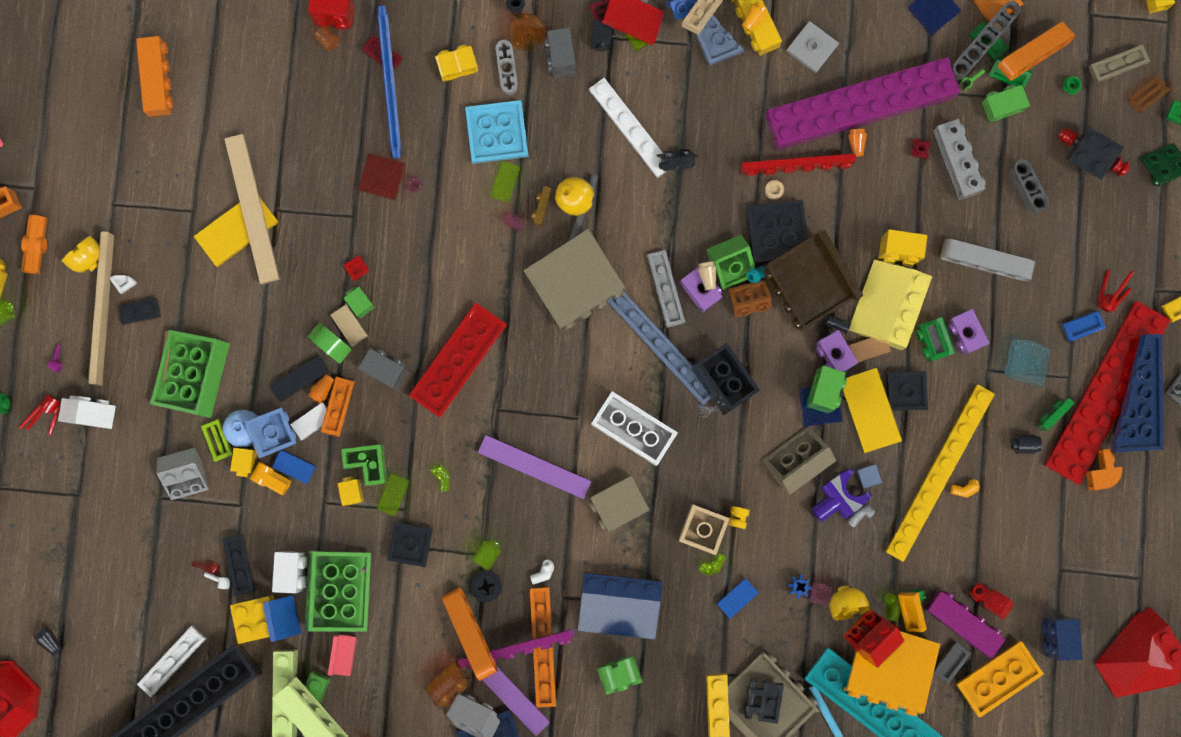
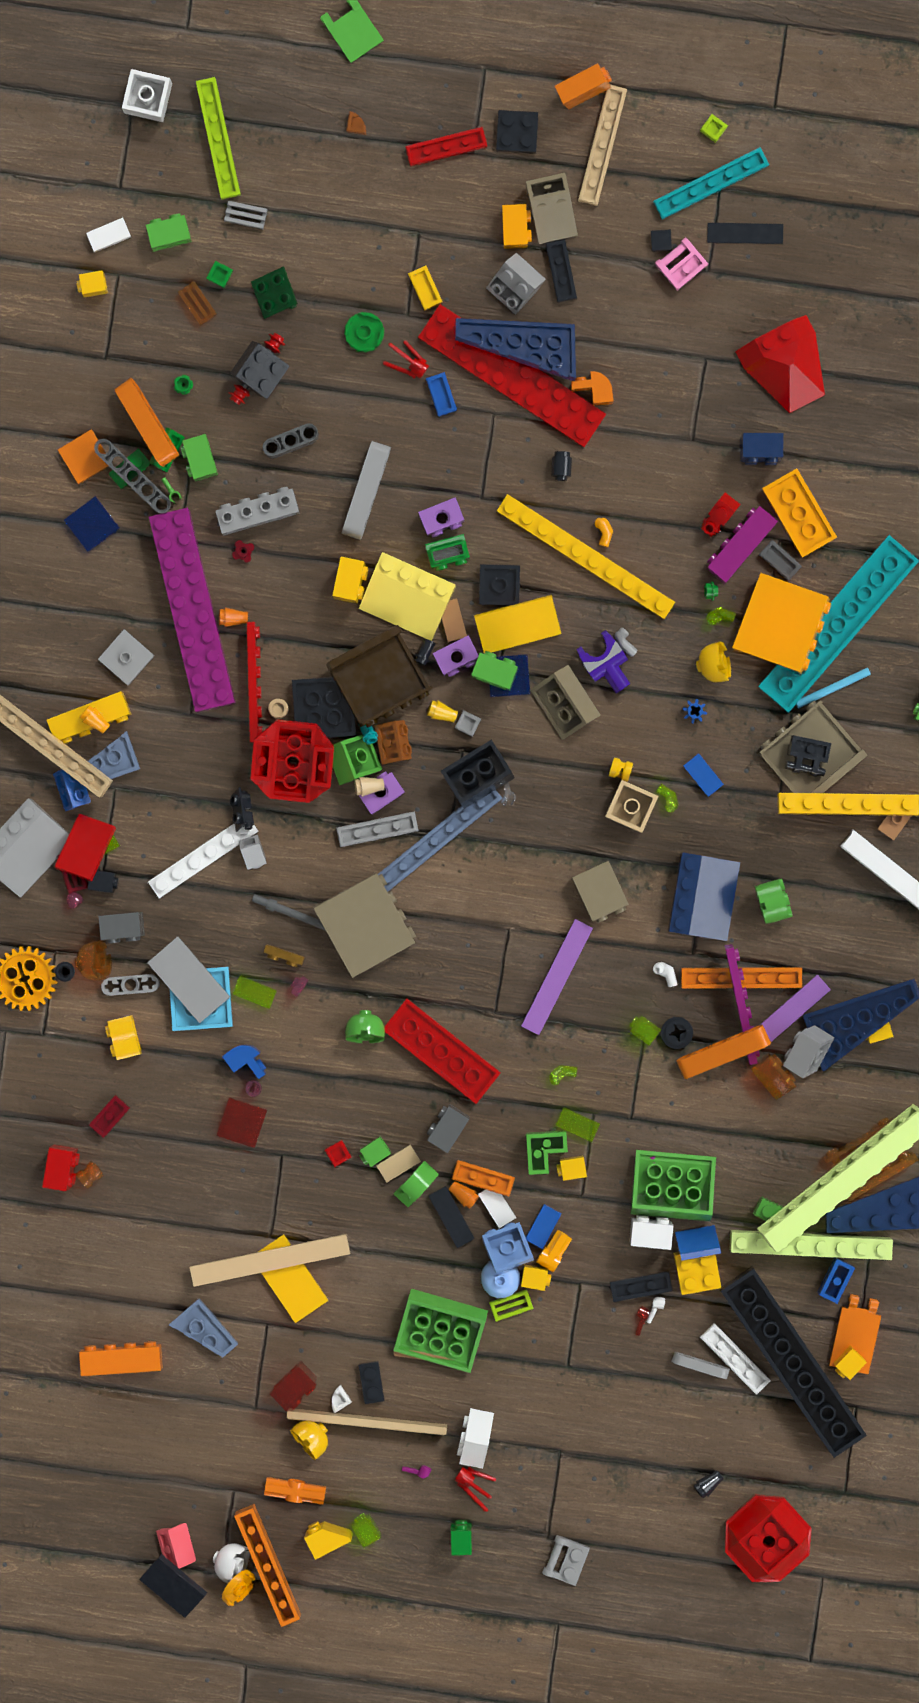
camera: 85 degrees left, 5 degrees up
(131, 237) = (293, 1386): none -> clear red brick
(163, 627) = (700, 1365): none -> light grey beam
(182, 473) = (544, 1341): light grey slope -> none
(186, 153) = (203, 1326): none -> sand blue wing
(342, 655) = (738, 1183): coral panel -> none
(389, 85) = (142, 1110): blue piece -> none
(410, 544) = (630, 1109): black plate -> none
(444, 174) = (245, 1054): none -> blue brick
(476, 285) = (365, 1028): none -> bright green cylinder
(514, 118) = (188, 979): none -> light grey tile
(574, 196) = (274, 920): yellow cylinder -> none
(583, 11) = (74, 899): none -> clear pink hinge
(634, 428) = (523, 871): white brick -> none
(637, 171) = (252, 852): none -> light grey brick
(722, 183) = (290, 781): none -> red piece
(772, 368) = (467, 723): none -> light grey tile
(781, 342) = (440, 711): none -> yellow cone
(820, 594) = (703, 689): clear pink plate -> none
(869, 476) = (585, 630): sand blue tile -> none
(874, 637) = (750, 641): red slope -> none
(912, 611) = (726, 598): light orange tile -> none
(1027, 362) = (476, 457): clear light blue slope -> none
(1060, 408) = (526, 427): green plate -> none
(1119, 64) = (163, 332): dark tan plate -> none
(1135, 250) = (364, 332): none -> green tile

